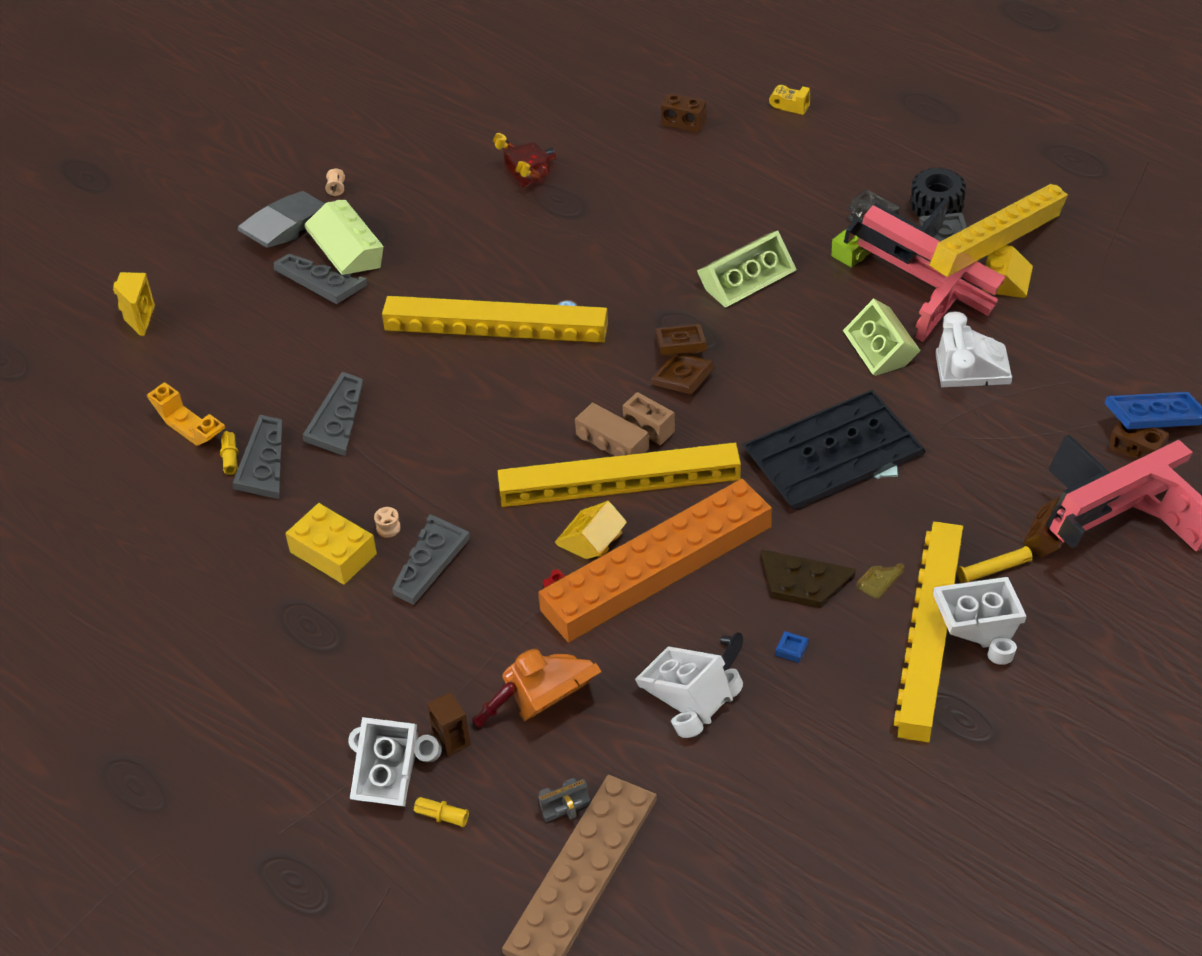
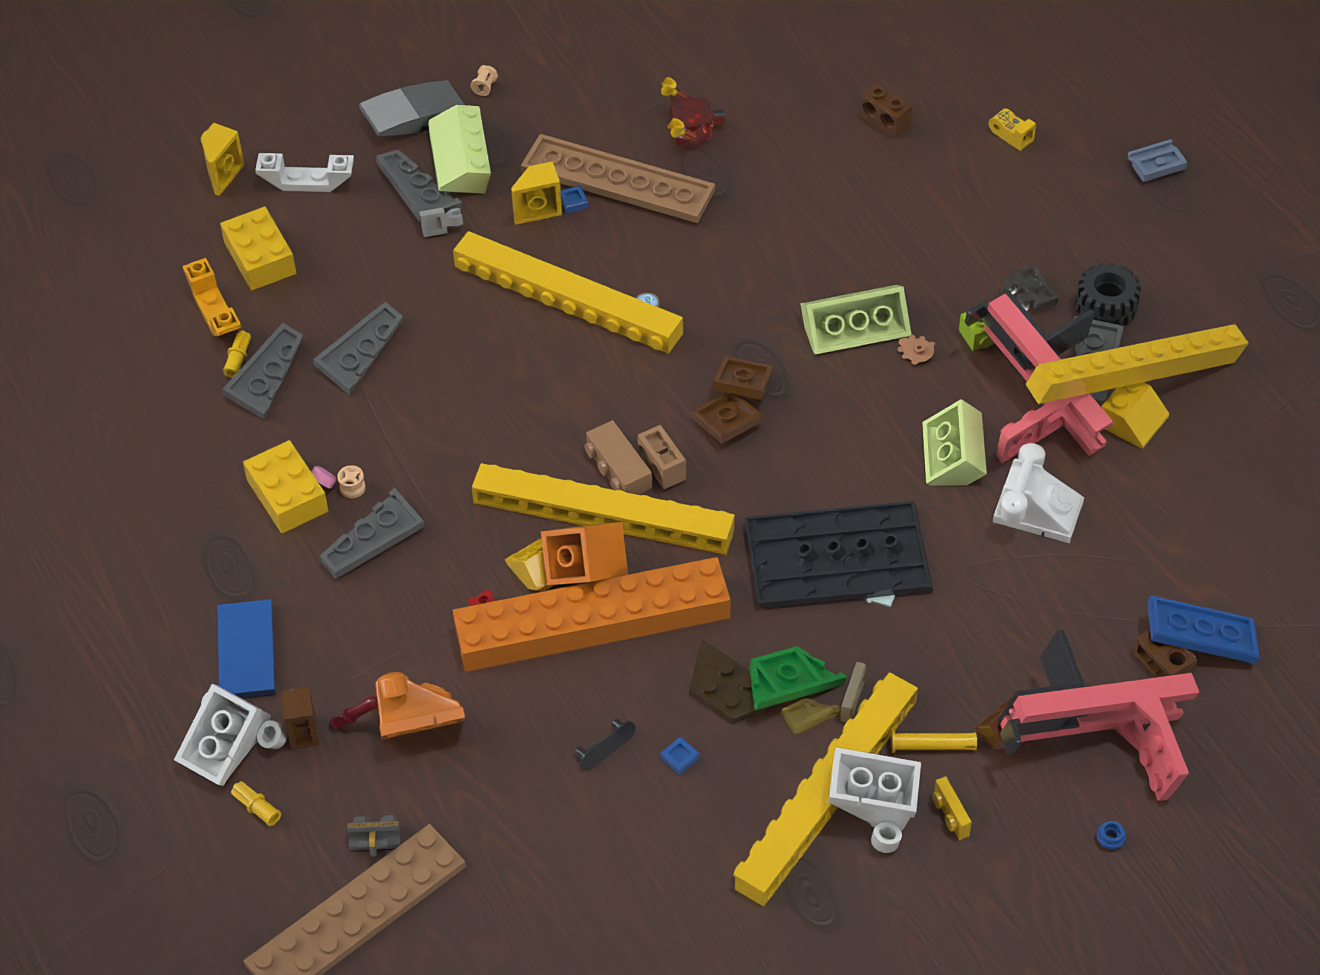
camera: 20 degrees right, 5 degrees up
(205, 363) = (258, 248): none -> yellow brick
(220, 299) = (272, 168): none -> white slope
(352, 297) = (436, 220): none -> light grey plate
(363, 684) = (246, 648): none -> blue tile
(365, 525) = (323, 476): none -> bright pink tile
(432, 251) = (537, 194): none -> yellow slope
(459, 250) = (573, 199): none -> blue tile
(489, 223) = (622, 178): none -> medium nougat plate
(628, 510) = (584, 553): none -> orange slope
(691, 684) = (553, 763): white piece -> none
(806, 278) = (916, 349): none -> nougat piece
(850, 553) = (789, 676): none -> green wing
(909, 548) = (853, 692): none -> dark tan tile
(915, 90) = (1157, 160): none -> sand blue plate
(1042, 610) = (955, 814): none -> yellow plate
(1177, 588) = (1111, 828): none -> blue plate

